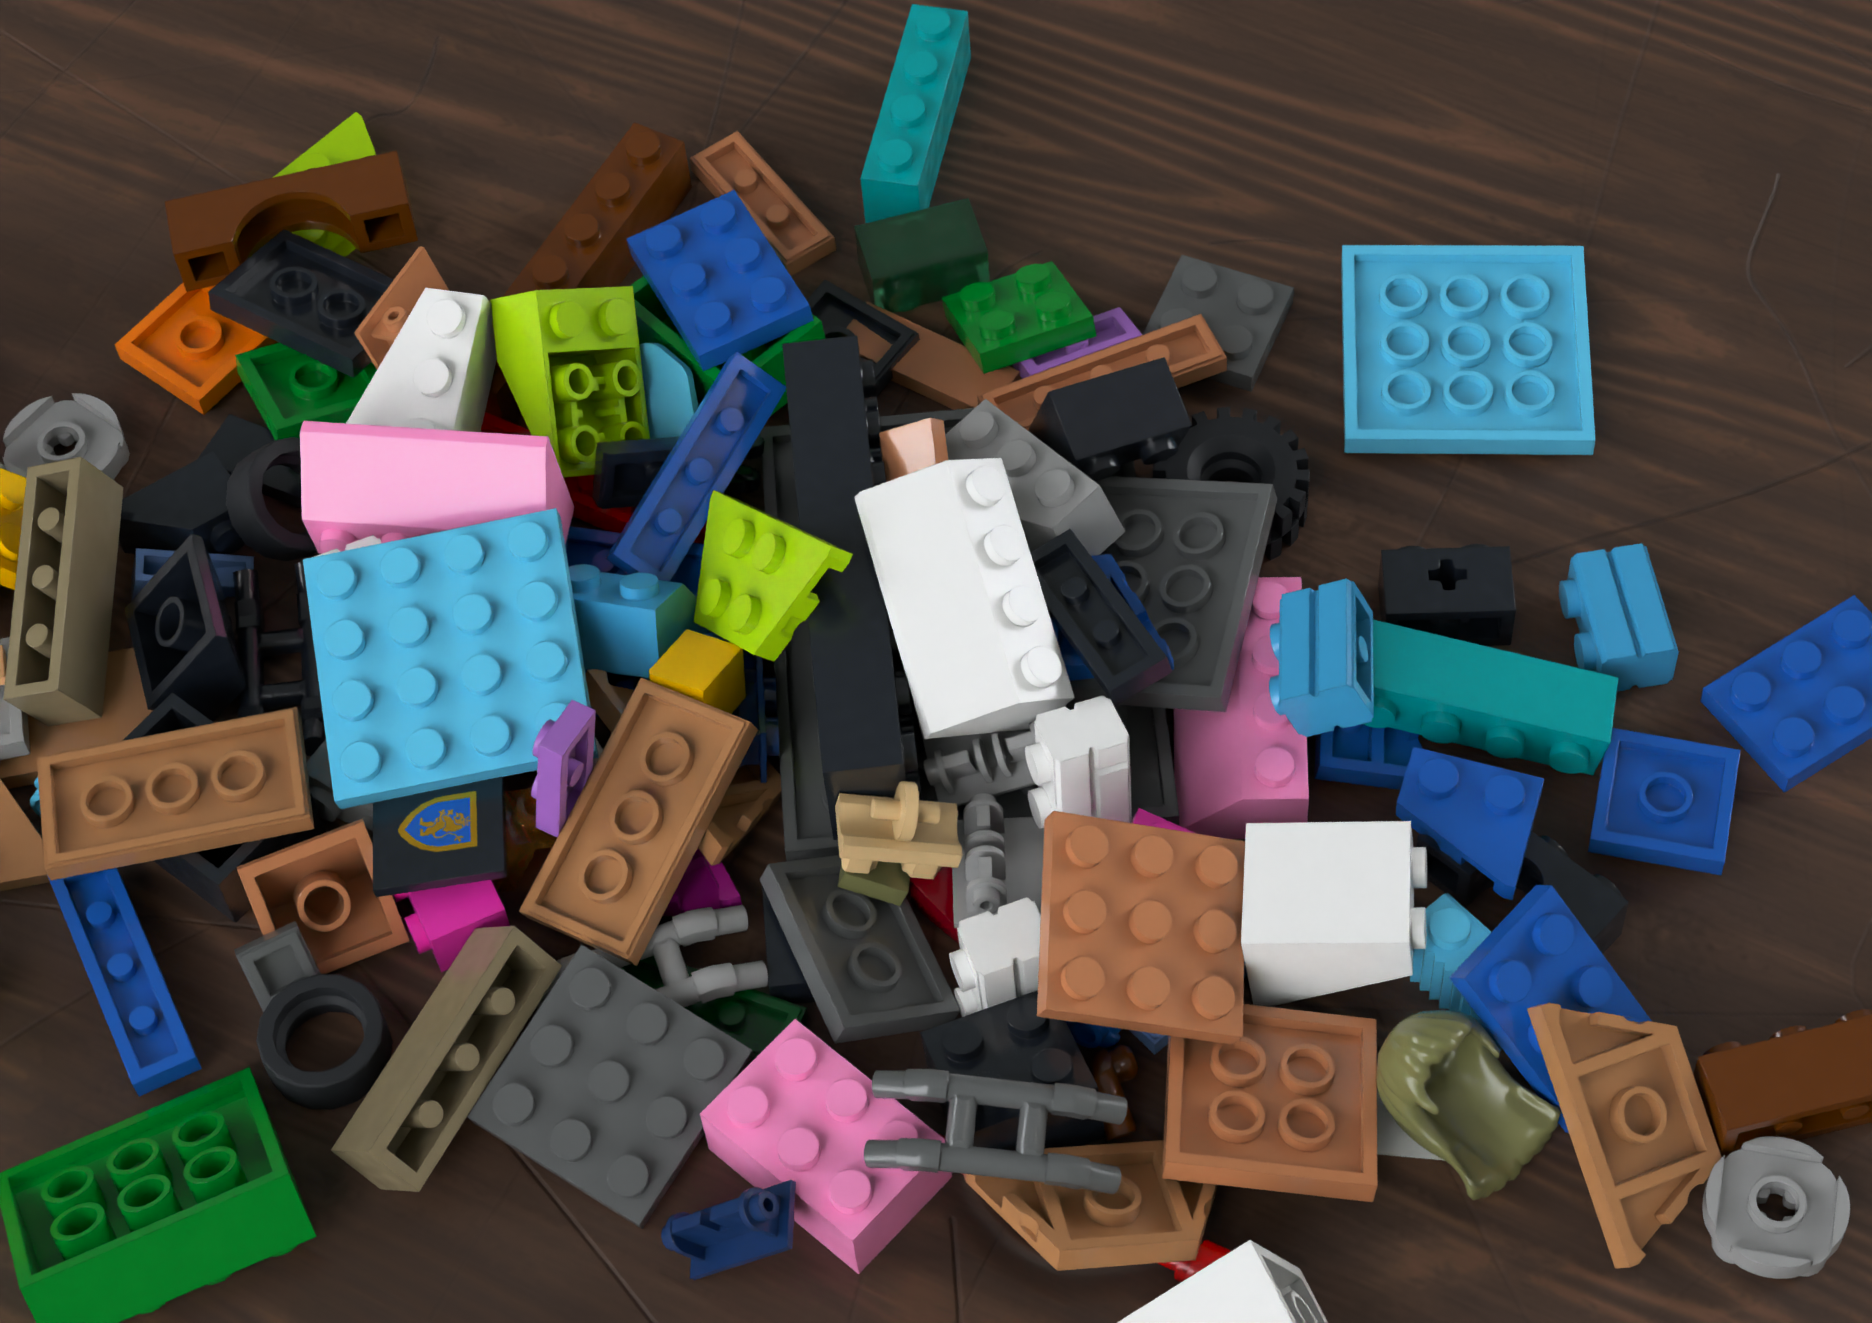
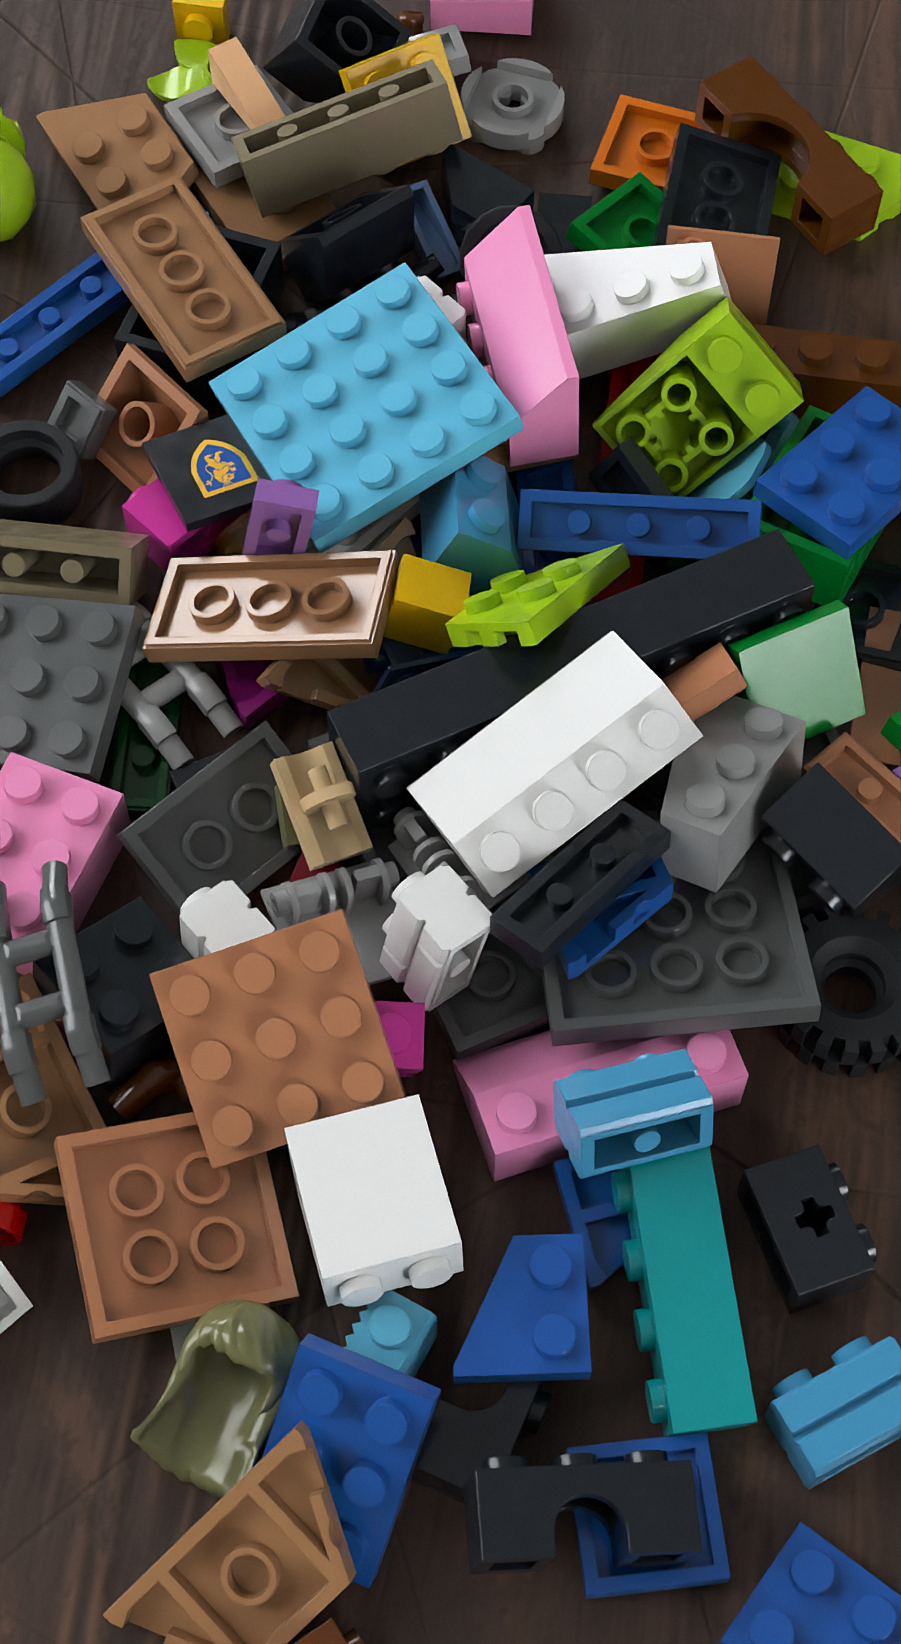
camera: 65 degrees right, 5 degrees up
(913, 382) = (804, 668): none -> tile
(1660, 869) = (641, 1503): none -> black arch

